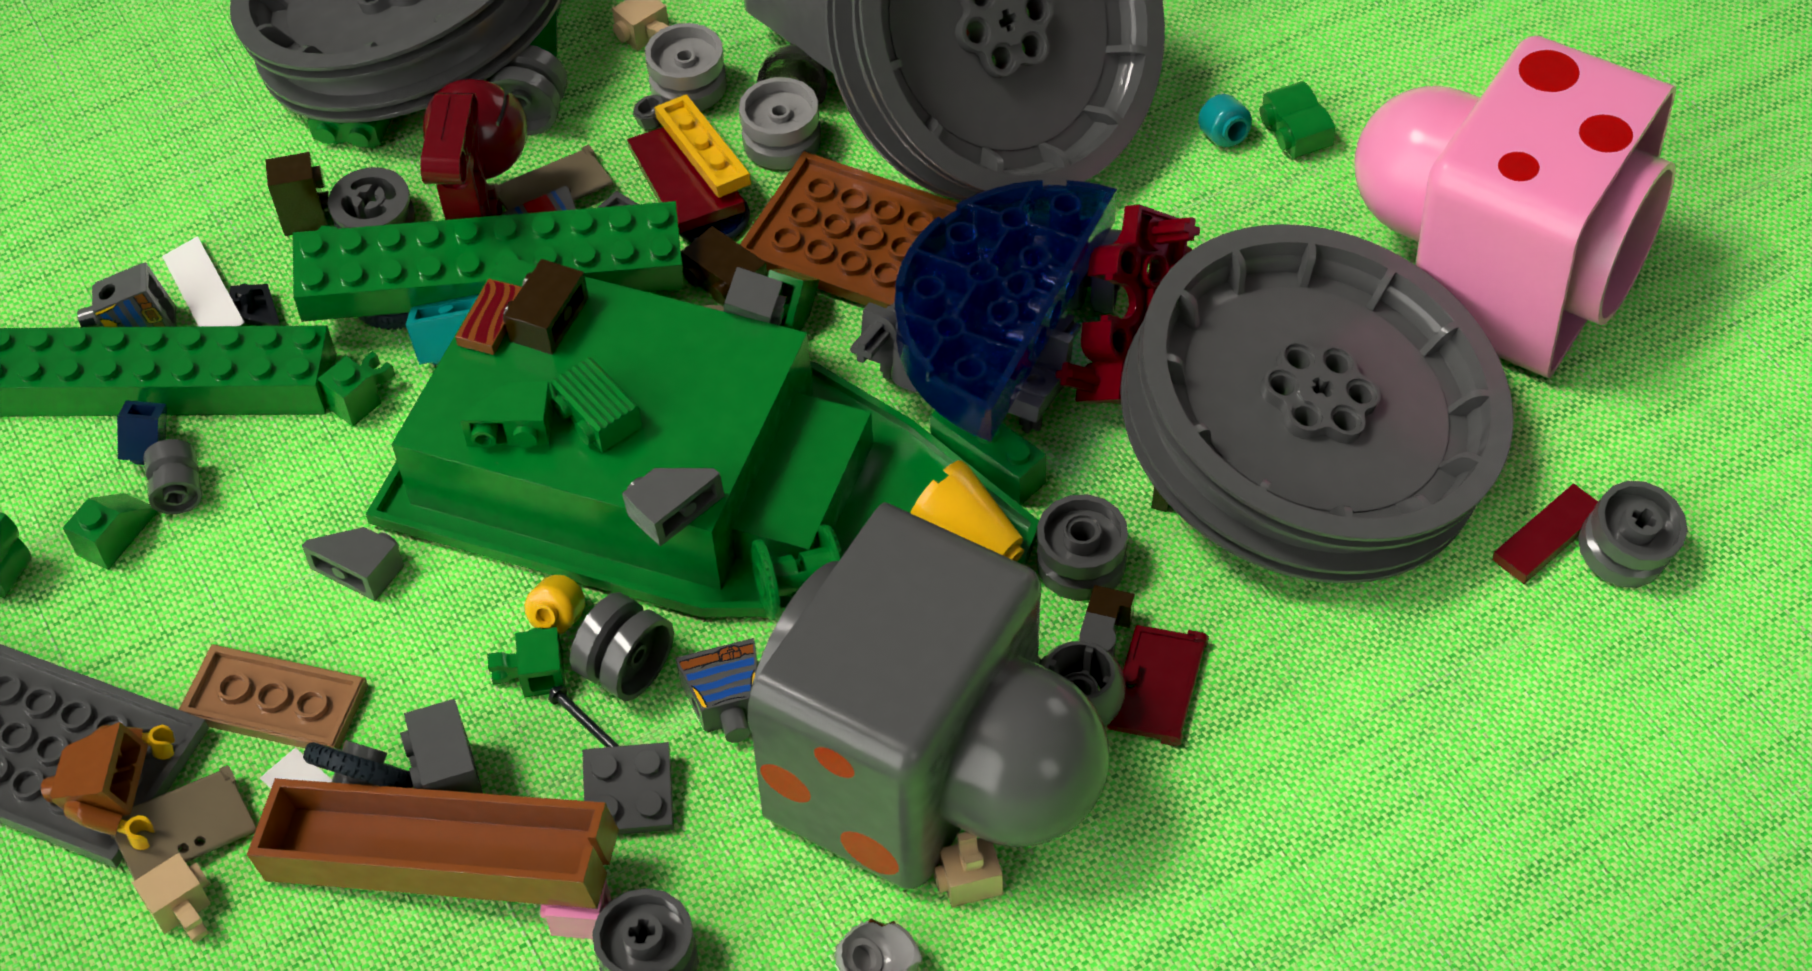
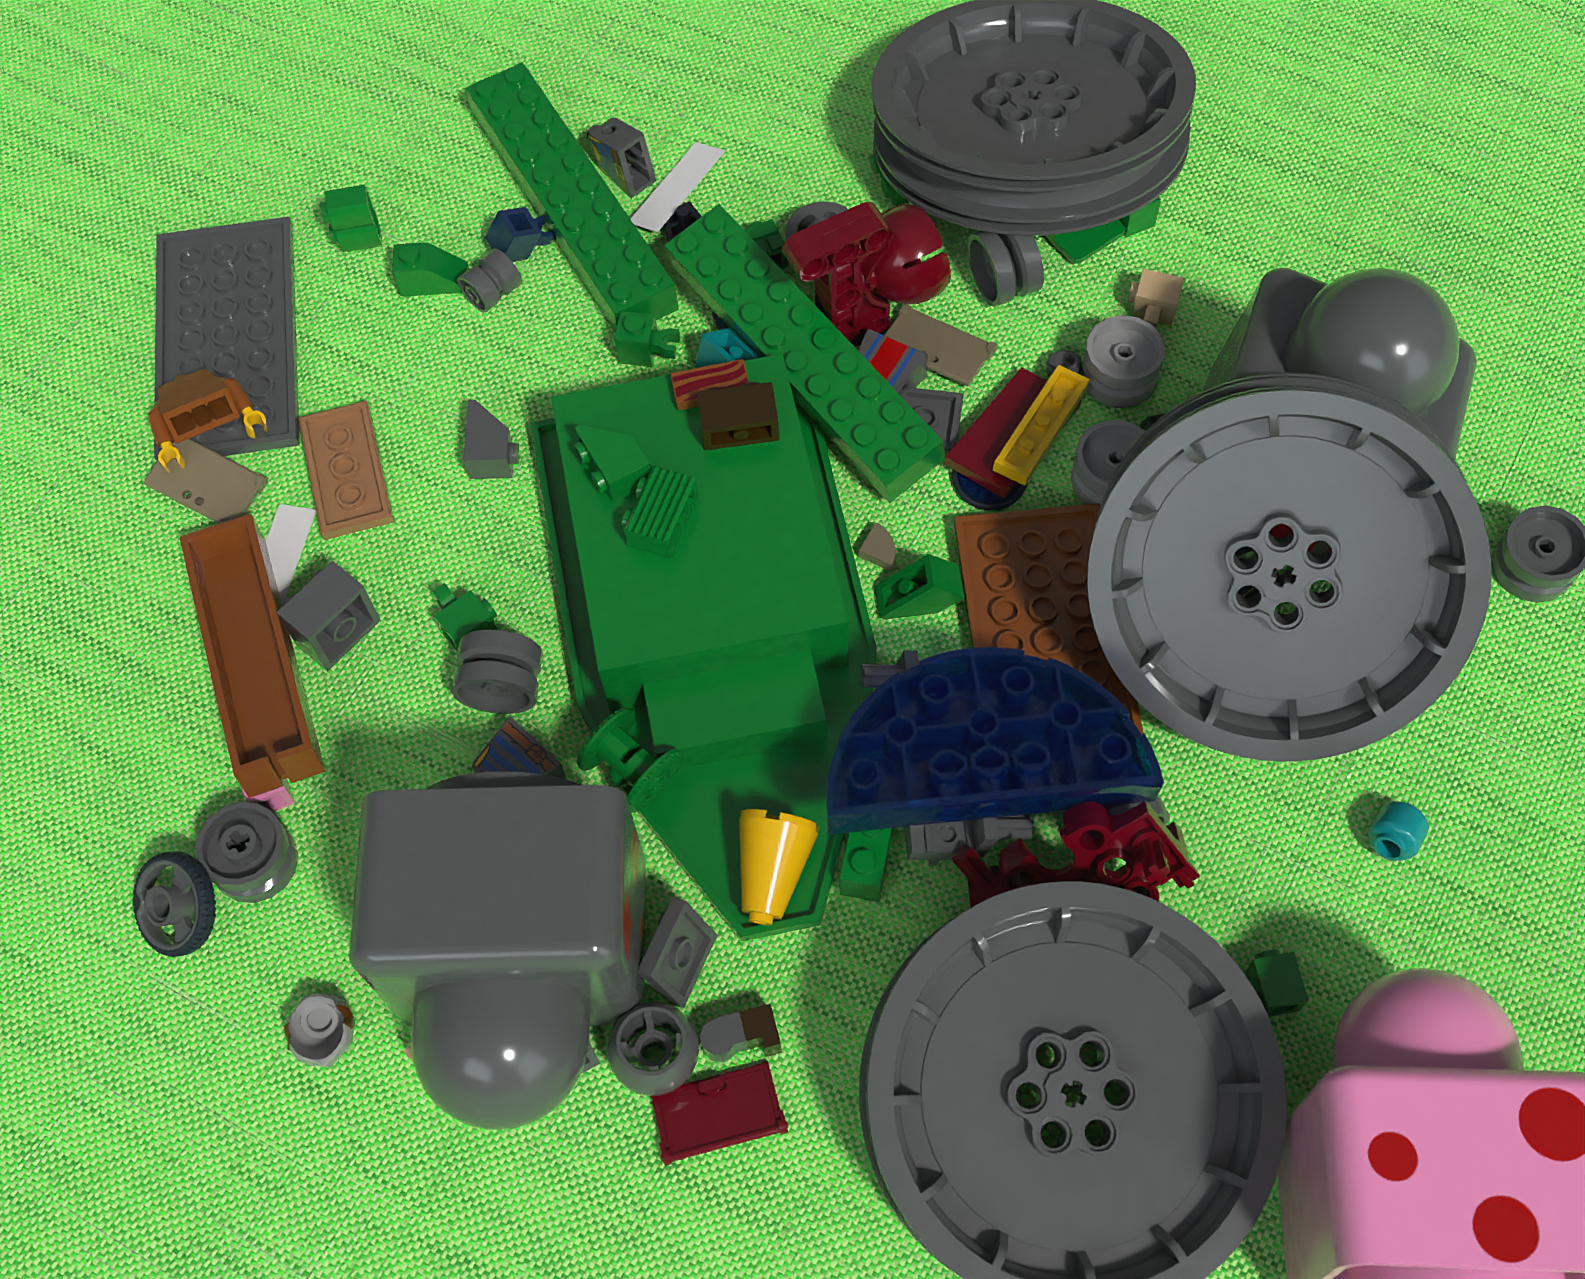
camera: 60 degrees right, 10 degrees up
(175, 896) = (144, 514): tan brick -> none
(297, 192) = (790, 180): dark brown brick -> none
(357, 765) = (288, 563): black wheel -> none
(555, 603) = (519, 601): yellow head -> none
(558, 695) = (418, 739): black axle -> none
(633, 784) = (387, 752): dark grey plate -> none
(671, 499) = (594, 622): dark grey slope -> none
(713, 261) = (930, 519): dark brown brick -> none
(755, 297) = (862, 565): dark grey brick -> none
(1081, 546) = (809, 946): dark grey wheel -> none
(1297, 119) = (1450, 897): green brick -> none

